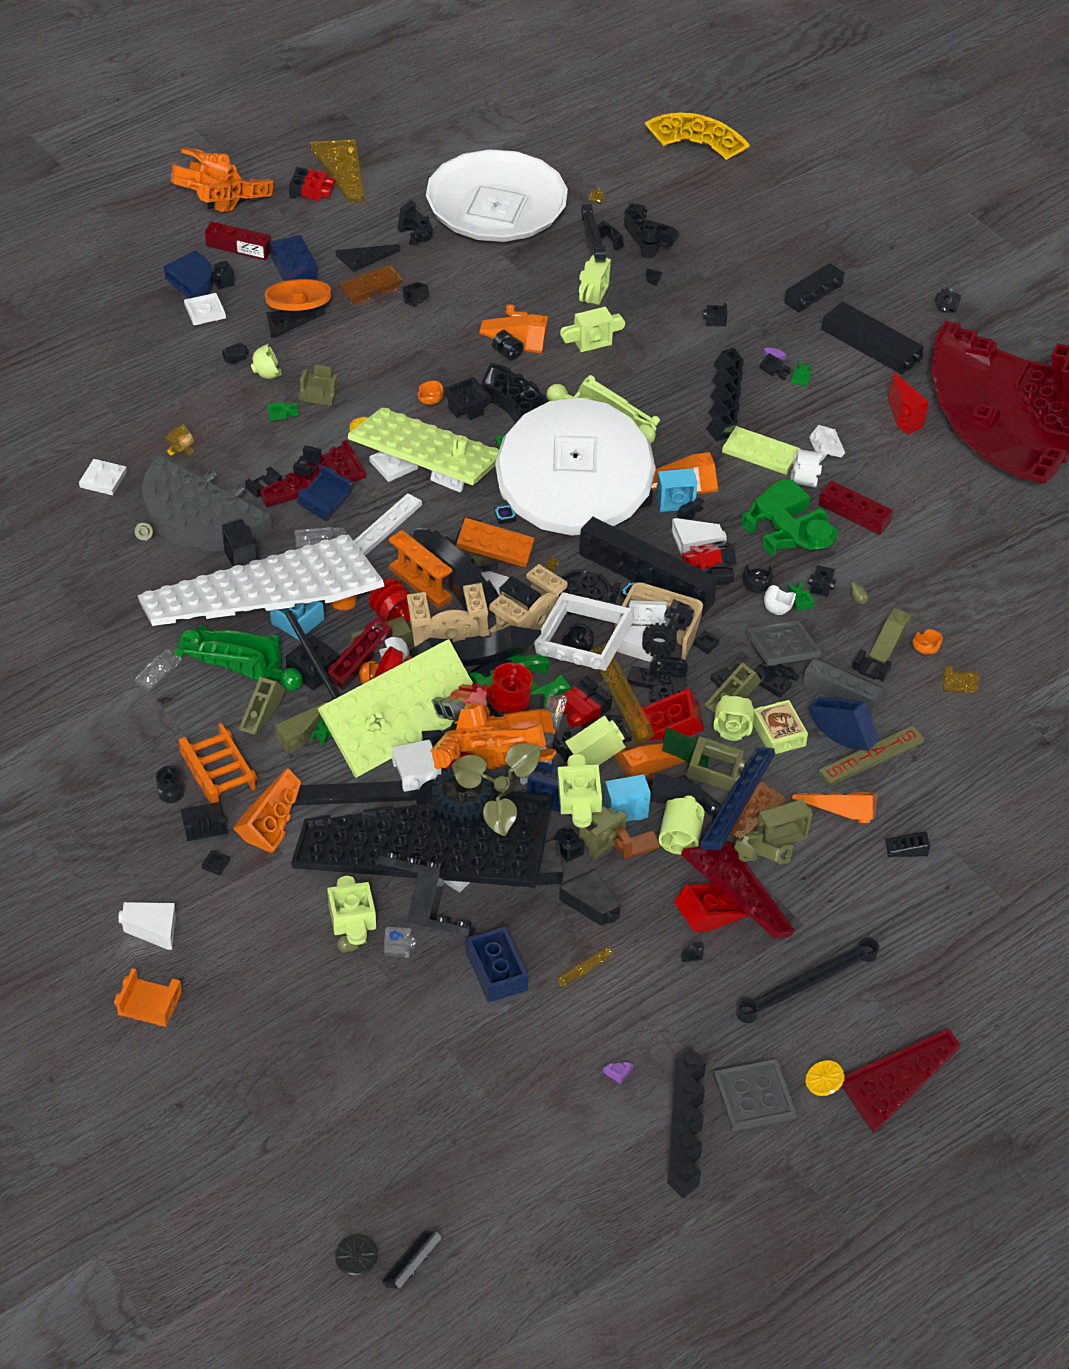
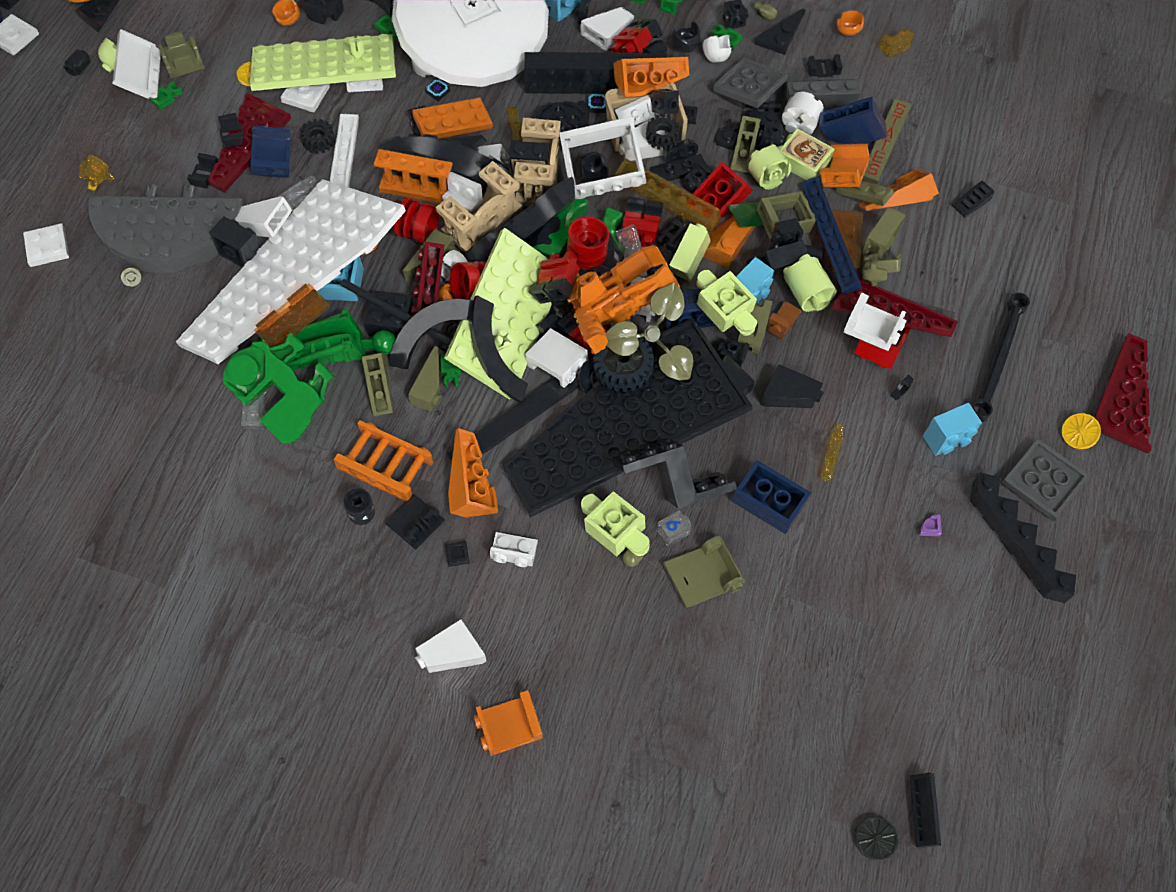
camera: 35 degrees left, 15 degrees up
(178, 642) = (259, 367): none -> green animal
(242, 616) = (292, 316): none -> clear orange brick
(260, 884) = (513, 549): none -> white bracket
(274, 376) = (136, 65): none -> white hinge
(277, 538) = (264, 216): none -> white slope
(323, 677) = (422, 323): none -> tile
(355, 727) = (488, 354): none -> black tile
(374, 493) = (319, 144): none -> black tyre
(394, 989) = (706, 571): none -> olive door
(449, 597) = (464, 191): none -> white bracket
(676, 583) = (644, 75): none -> orange wedge
(697, 773) = (787, 232): none -> black brick
(699, 879) = (874, 324): none -> white panel
(700, 1004) = (952, 429): none -> medium azure brick
(760, 693) = (770, 134): none -> black brick
(804, 689) = (802, 113): none -> white brick
(804, 781) = (868, 192): none -> olive plate
(815, 753) = (847, 166): none -> orange panel
(856, 621) = (782, 34): none -> black wing
(891, 635) = (819, 32): olive slope -> none

